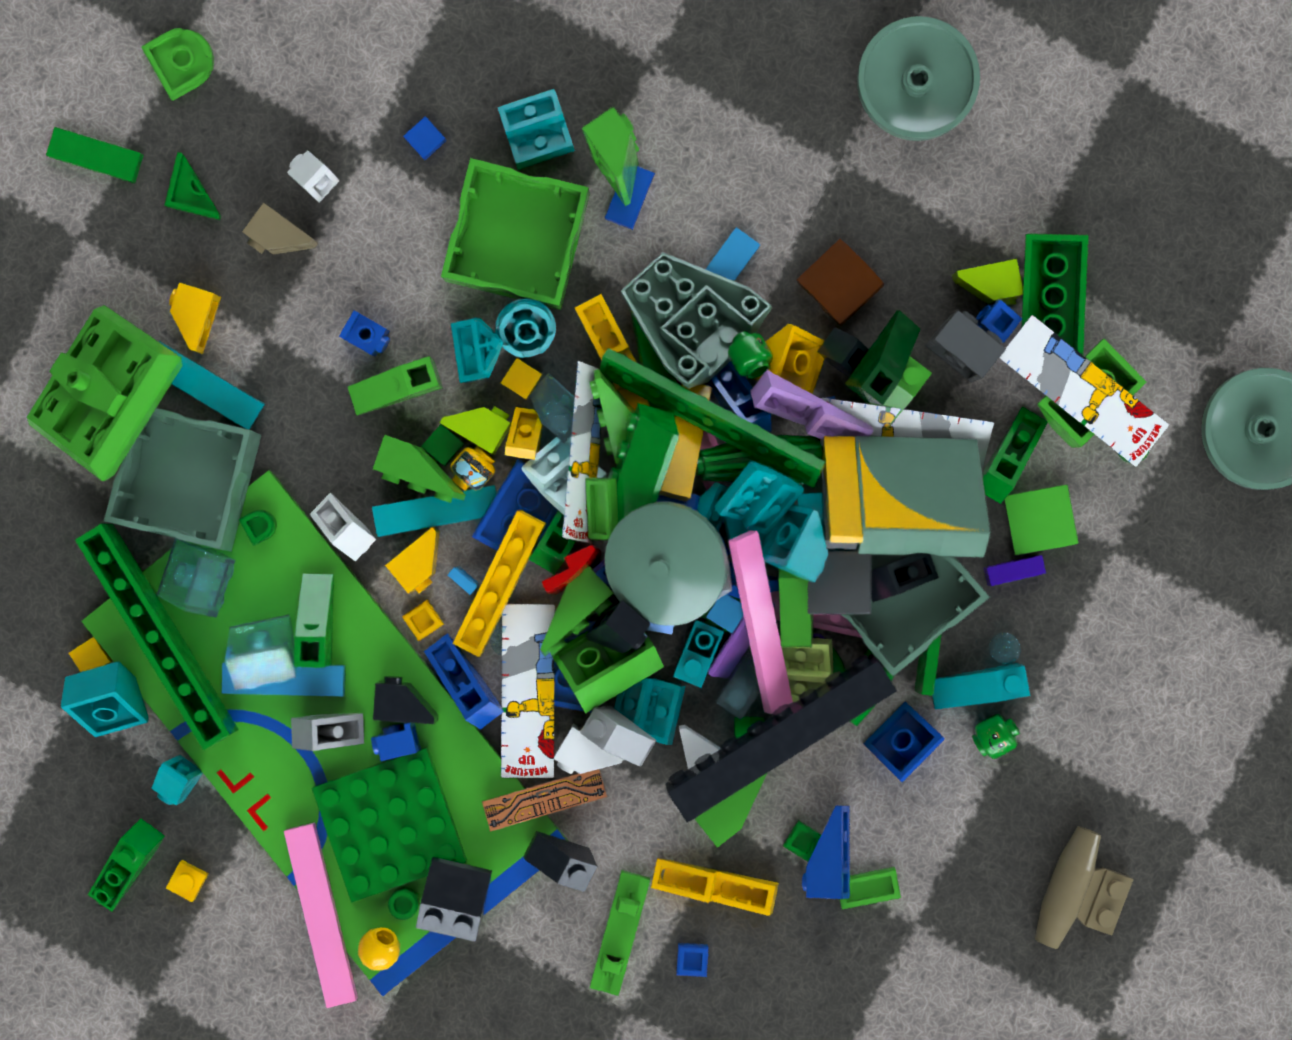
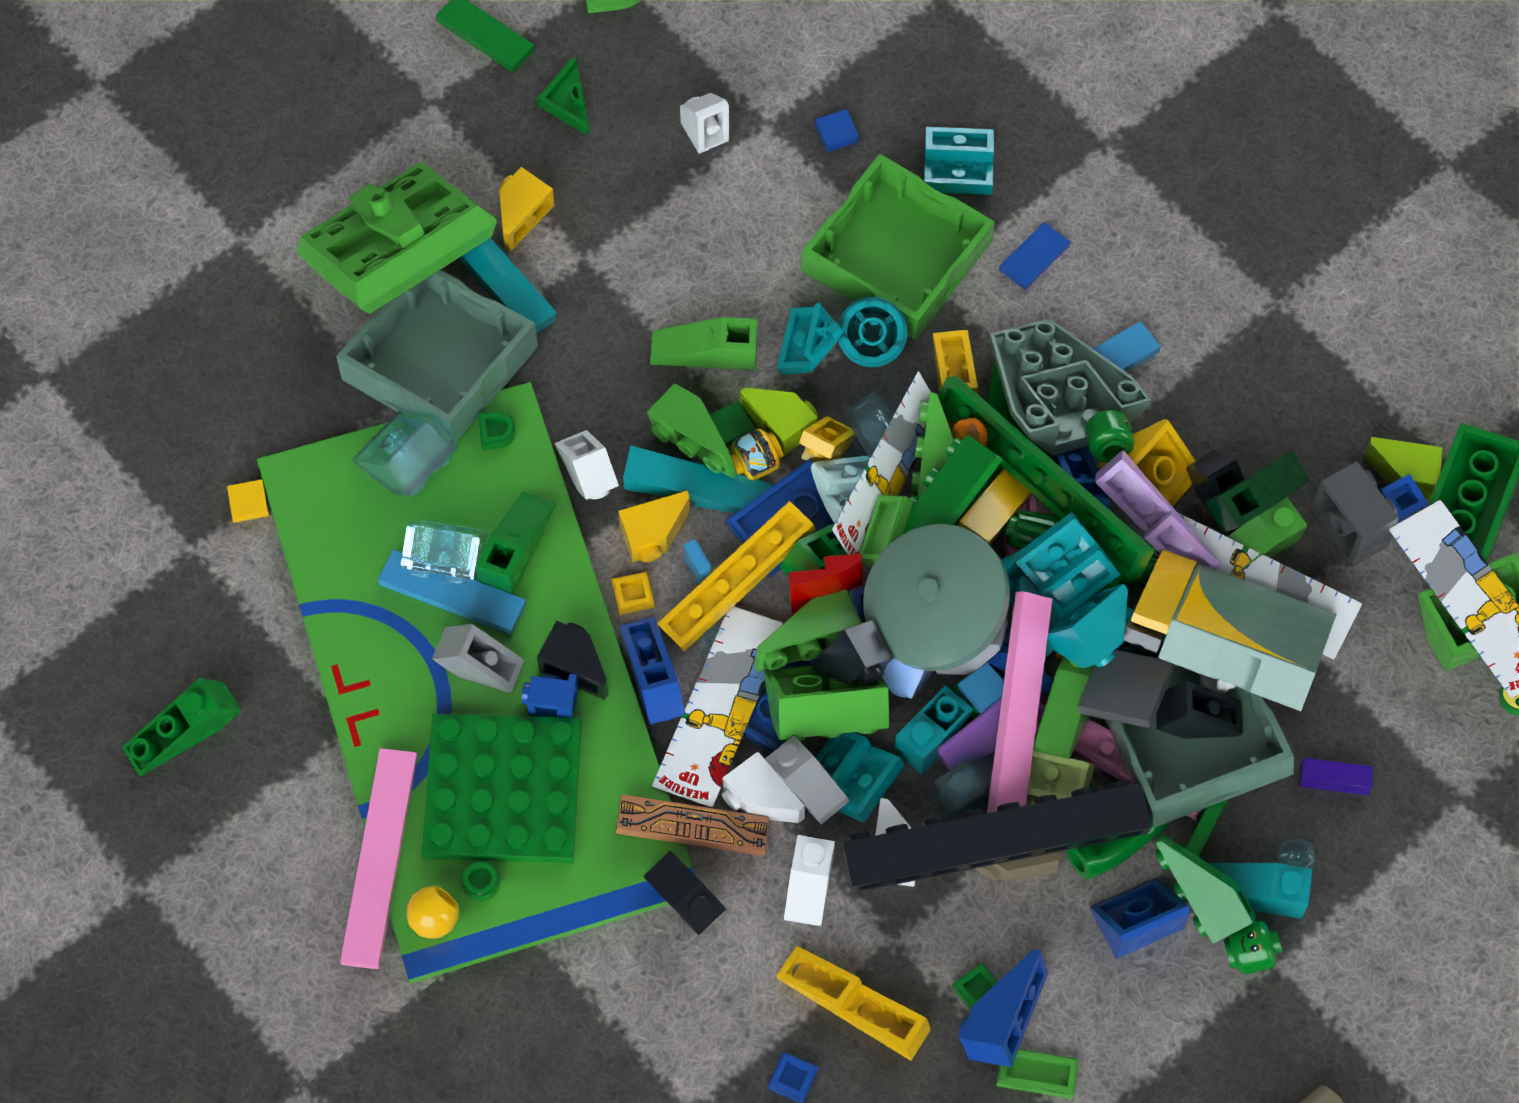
camera: 20 degrees right, 25 degrees down
(104, 699) = (246, 542): teal slope -> none
(156, 635) = (338, 493): green brick -> none
(176, 780) = (283, 651): teal slope -> none
(187, 880) = (241, 771): yellow plate -> none
(275, 233) = (643, 162): dark tan slope -> none
(352, 333) = (682, 285): blue brick -> none
(454, 899) = (545, 883): black slope -> none
(521, 378) = (845, 389): yellow tile -> none
(614, 151) = (1035, 192): bright green slope -> none
(620, 932) = (718, 1014): bright green hinge -> none
(640, 394) = (973, 428): none -> orange tile
(648, 807) = (809, 880): none -> white slope
(730, 814) = (903, 916): bright green slope -> none
(840, 282) = (1236, 413): reddish brown slope -> none
(918, 78) = (1391, 243): sand green dish -> none
(954, 714) = (1211, 893): none -> slope
(1012, 454) = (1369, 651): green slope -> none
(1041, 519) = (1385, 732): bright green slope -> none

